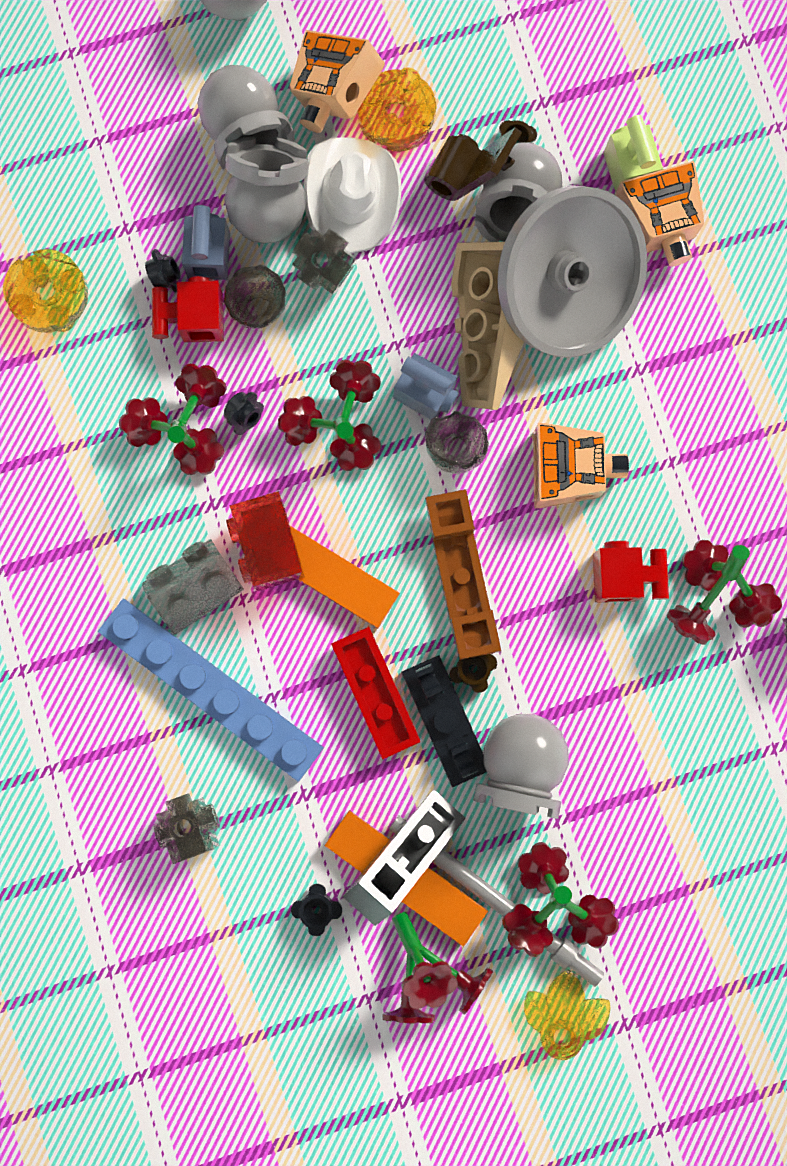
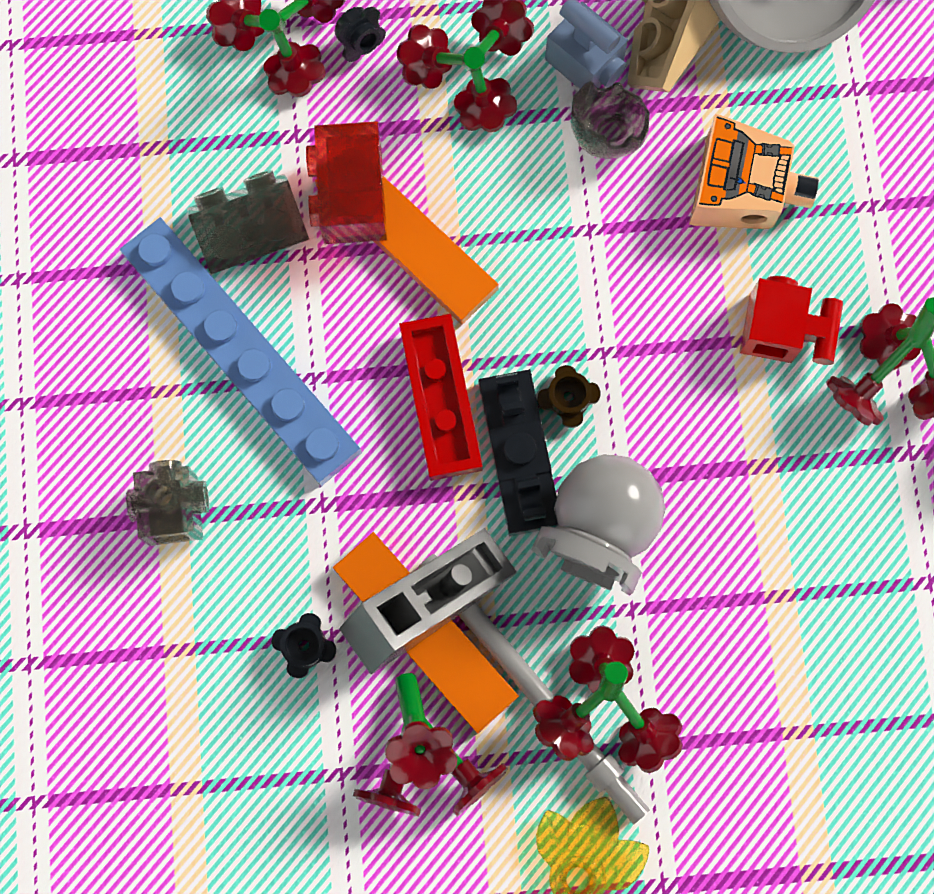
camera: 20 degrees right, 5 degrees down
(462, 575) = (580, 277): dark orange slope -> none

